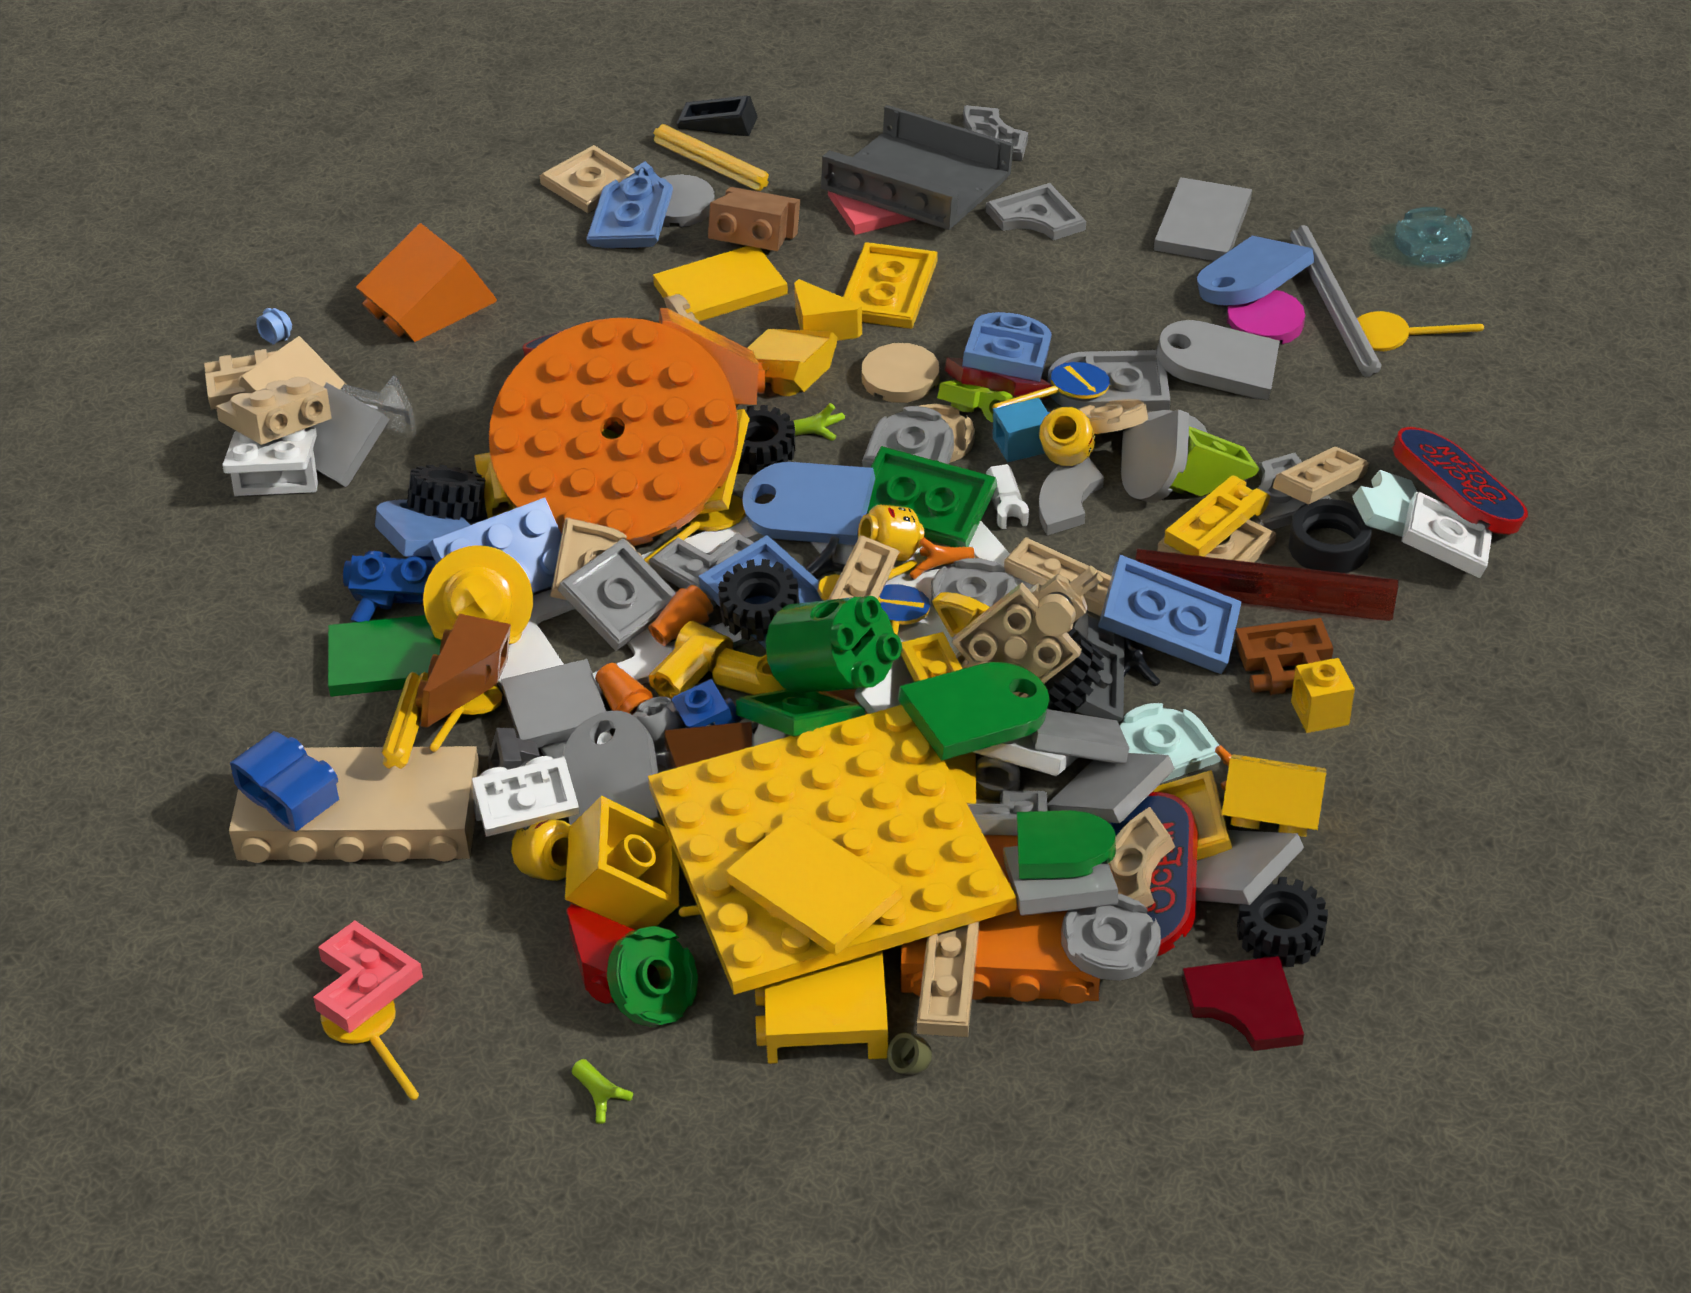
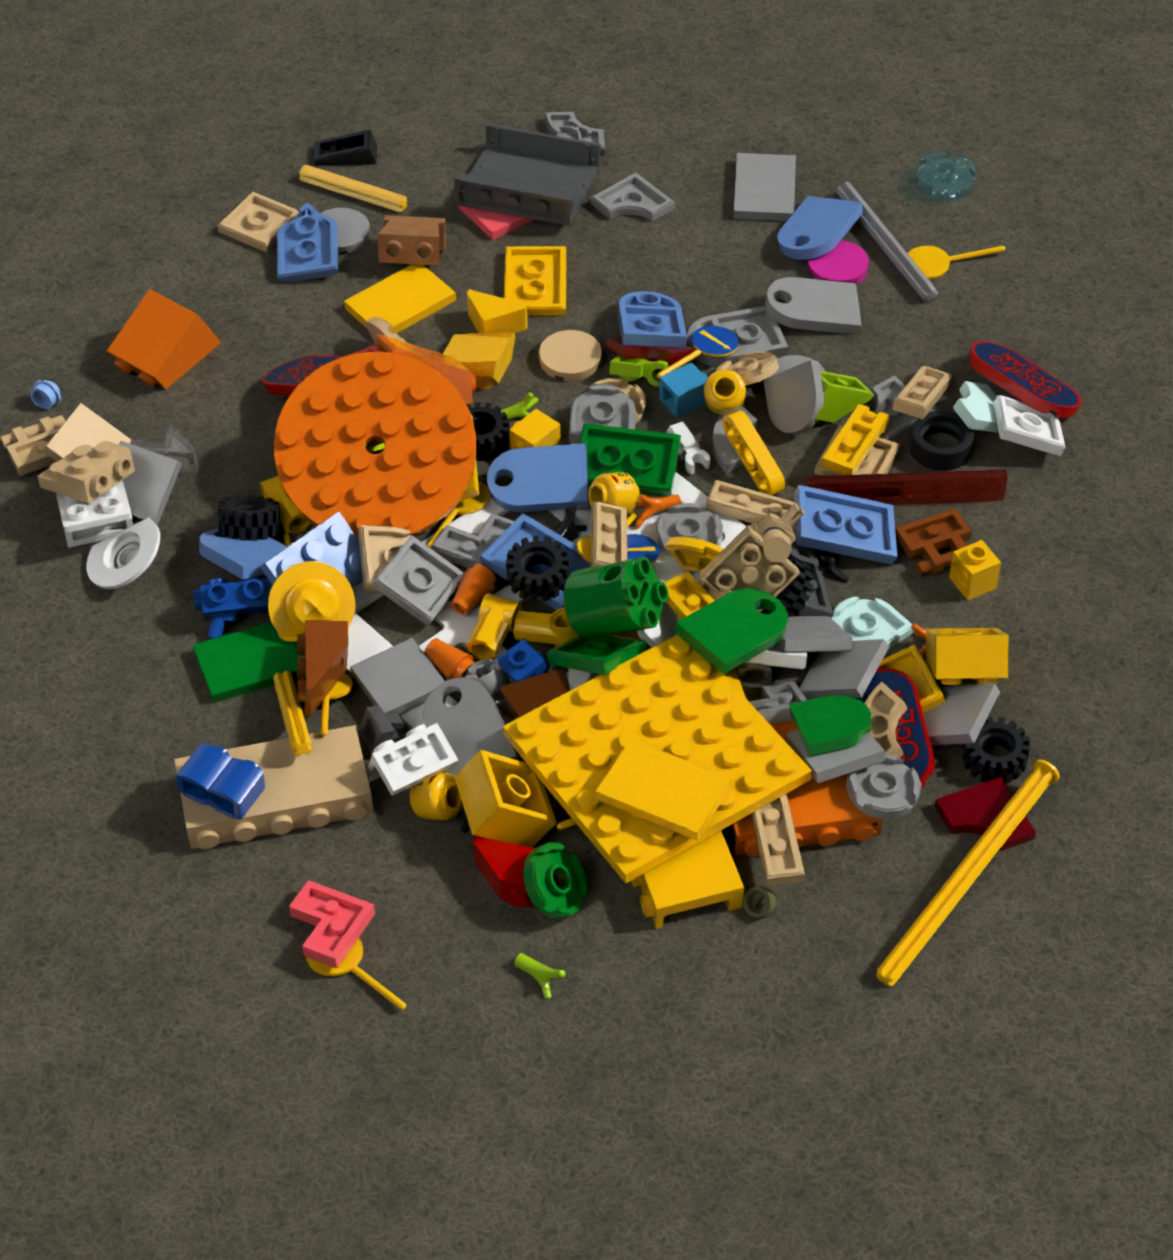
camera: 15 degrees left, 5 degrees up
(287, 512) = (123, 555): none -> white hat
(822, 446) = (535, 431): none -> yellow brick
(1082, 513) = (753, 453): none -> yellow beam
(1191, 1068) = (967, 872): none -> yellow axle

